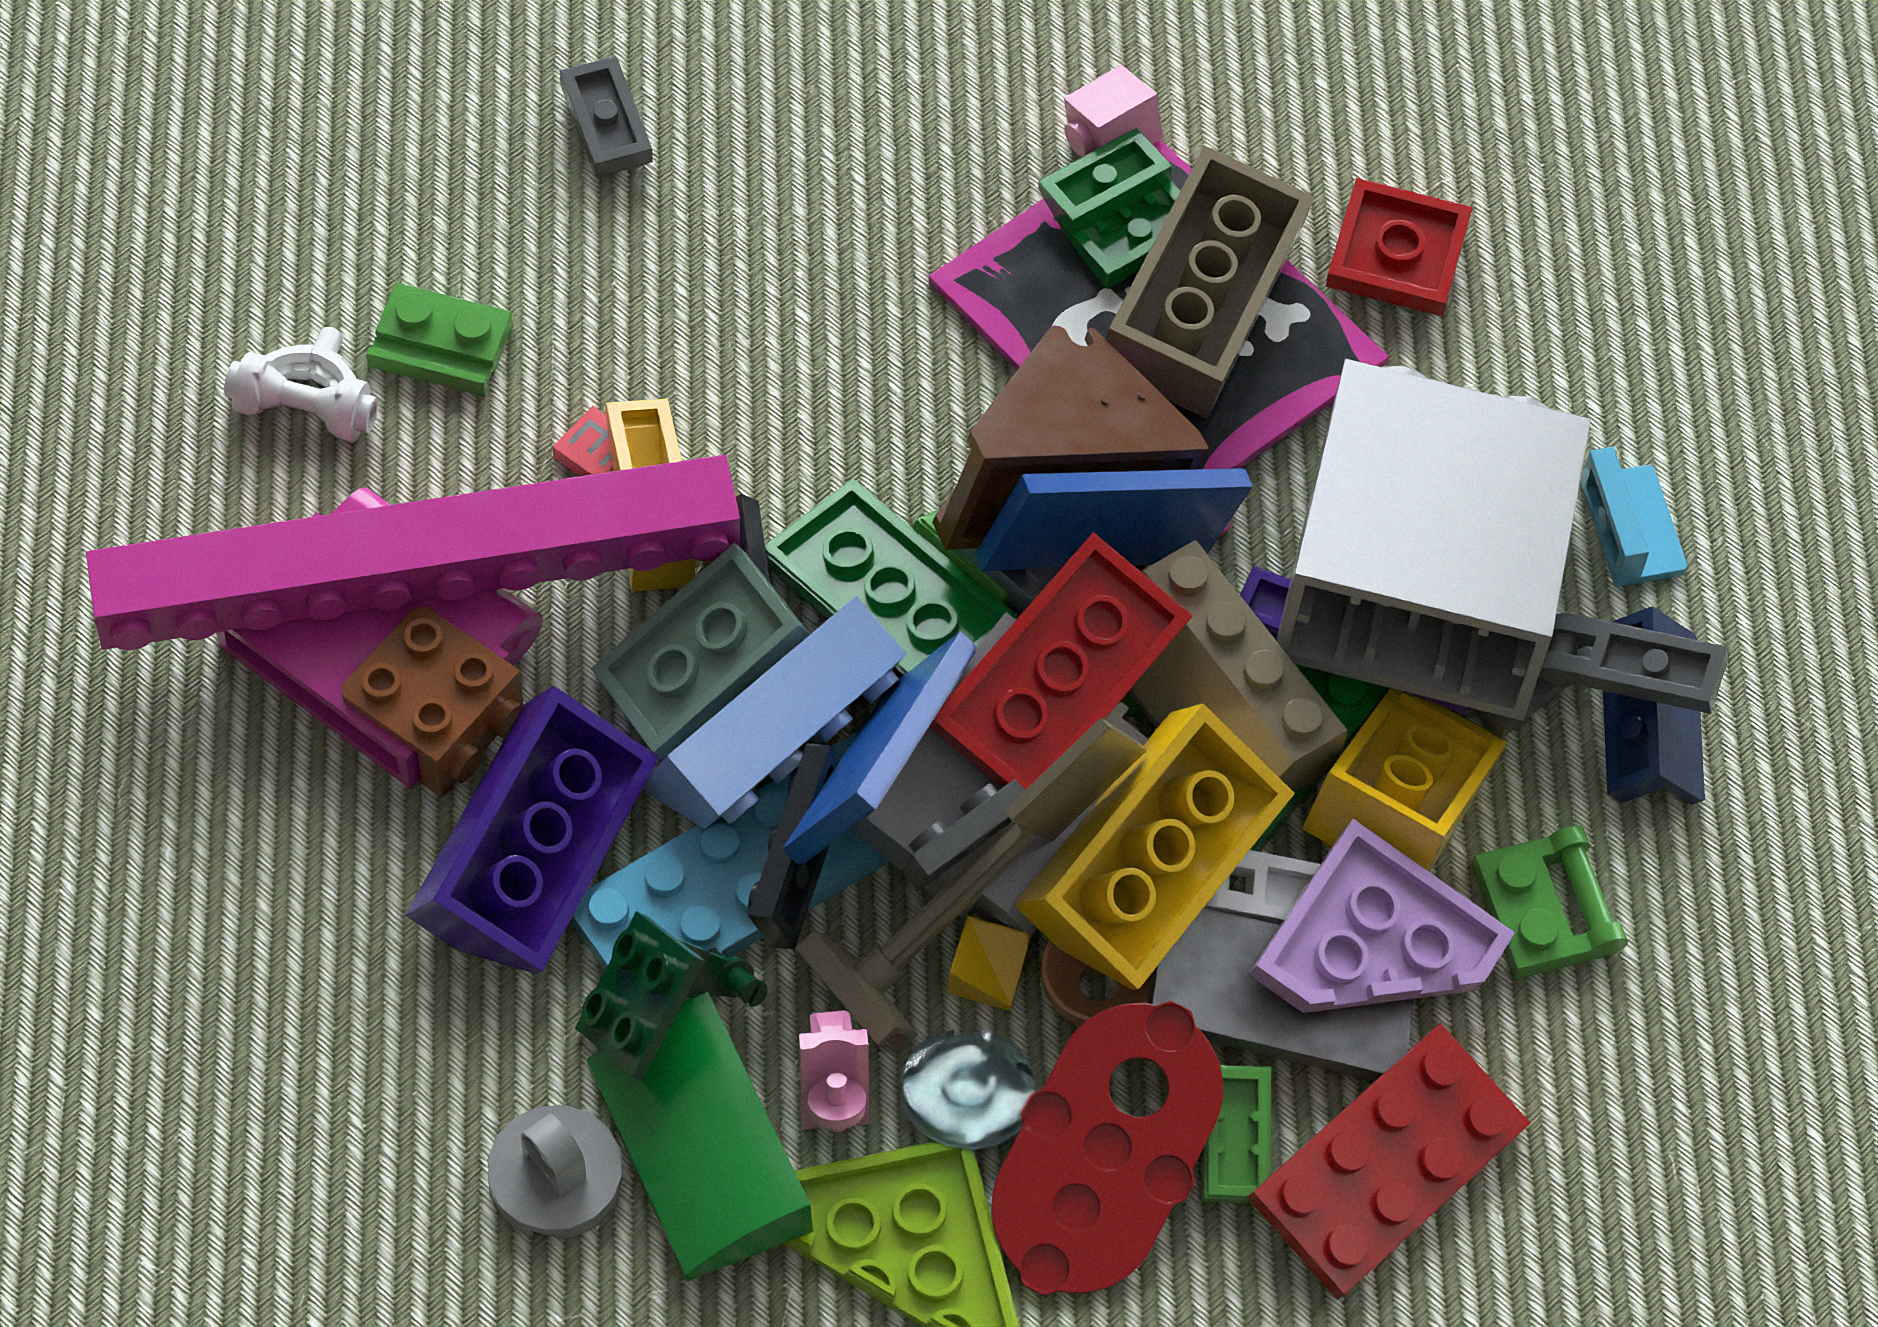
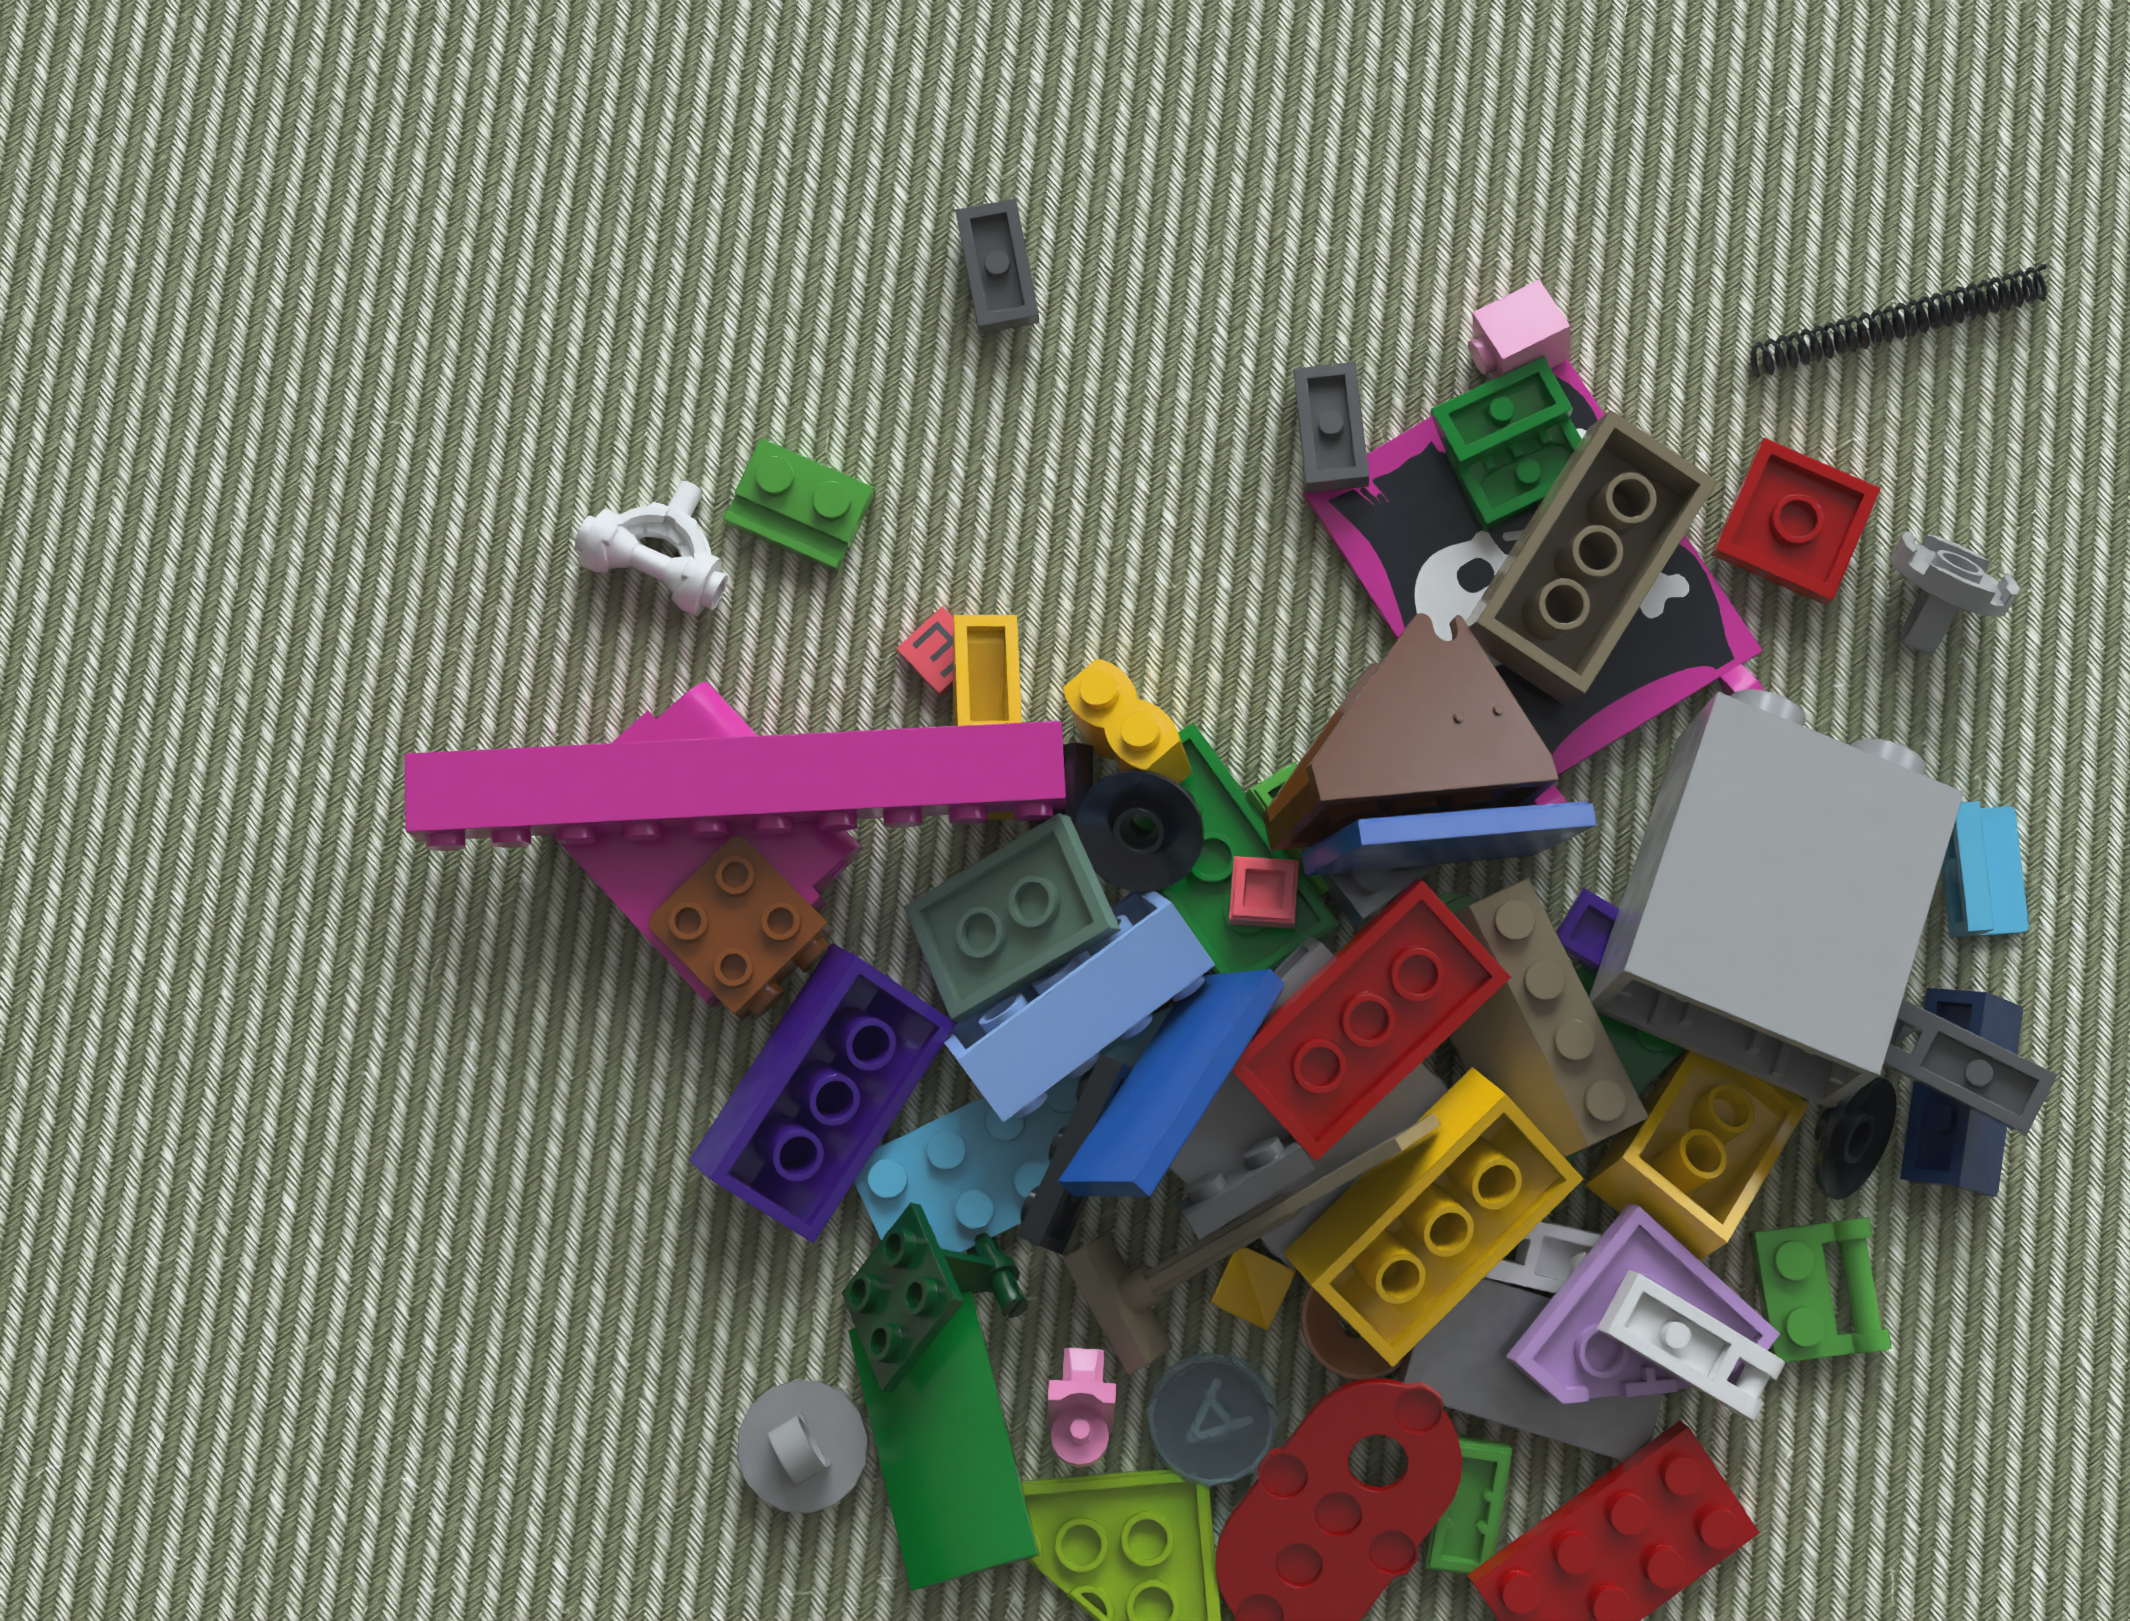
camera: 15 degrees right, 20 degrees up
(782, 549) = (1133, 855): none -> black dish
(791, 479) = (1122, 724): none -> yellow brick
(944, 599) = (1264, 892): none -> coral tile
(946, 213) = (1331, 427): none -> dark grey plate
(1427, 934) = (1689, 1344): none -> white plate
(1435, 92) = (1934, 317): none -> black piece
(1551, 271) = (1949, 581): none -> light grey tile
(1554, 750) = (1854, 1138): none -> black dish

